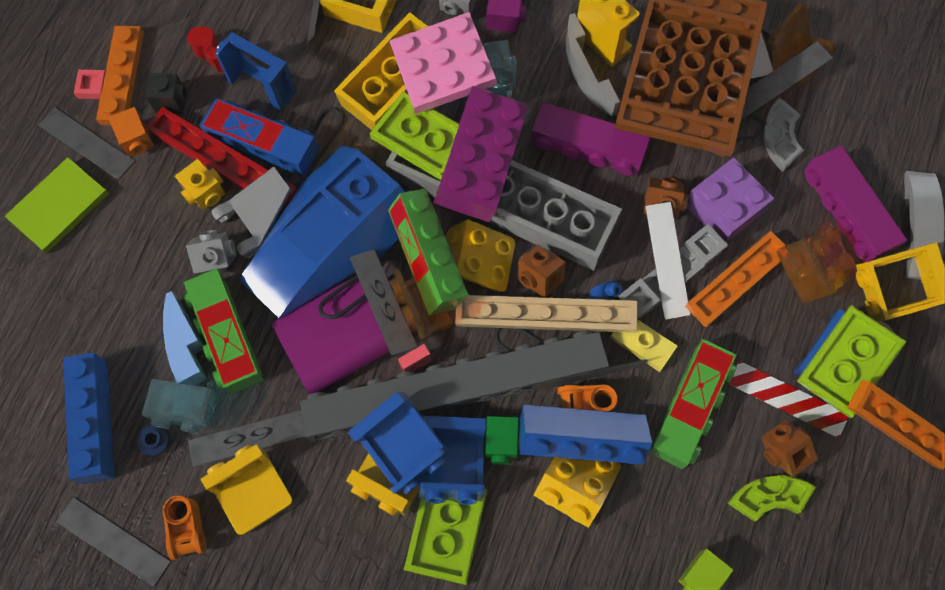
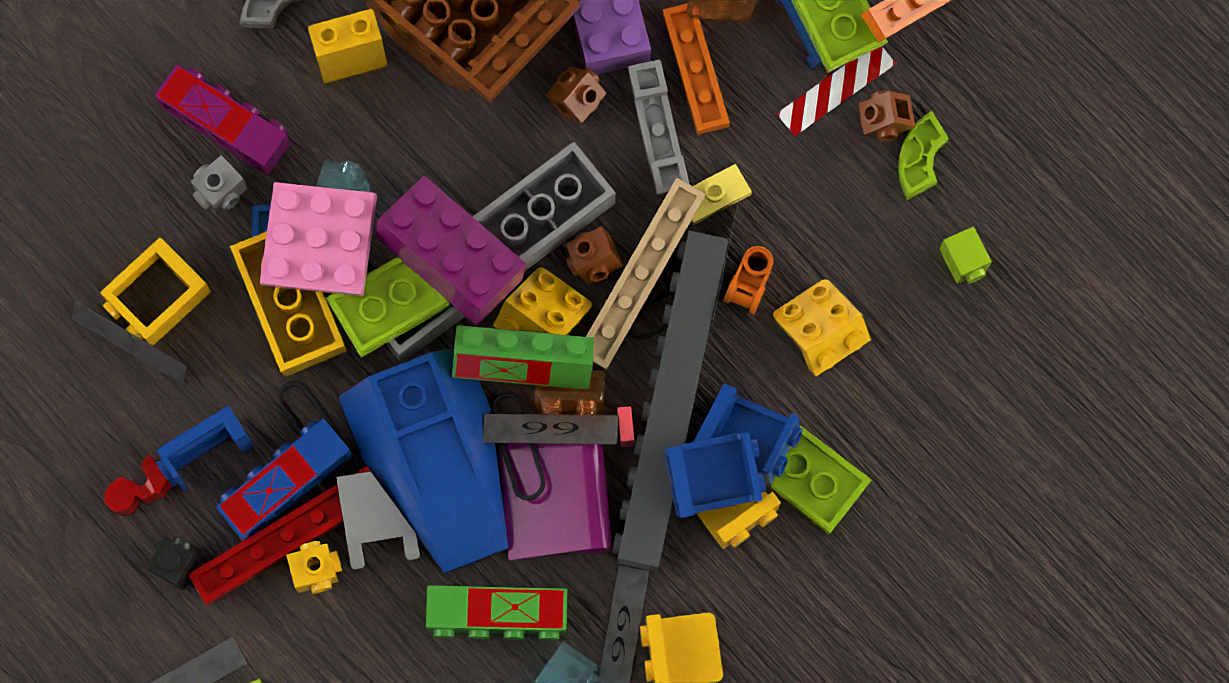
camera: 70 degrees left, 5 degrees up
(89, 84) = (106, 649): coral tile -> none
(120, 72) = (111, 610): orange plate -> none
(131, 132) = (202, 621): orange brick -> none
(181, 342) = (487, 659): light blue slope -> none
(211, 251) = (401, 586): light grey brick -> none
(501, 439) = (750, 378): green brick -> none
(584, 434) = (784, 297): blue brick -> none
(588, 139) = (467, 135): magenta brick -> none
(600, 93) = (423, 94): light grey slope -> none
(606, 291) = (644, 205): blue arm -> none
(667, 260) = (644, 125): white sticker -> none
(692, 405) = (801, 180): bright green brick -> none

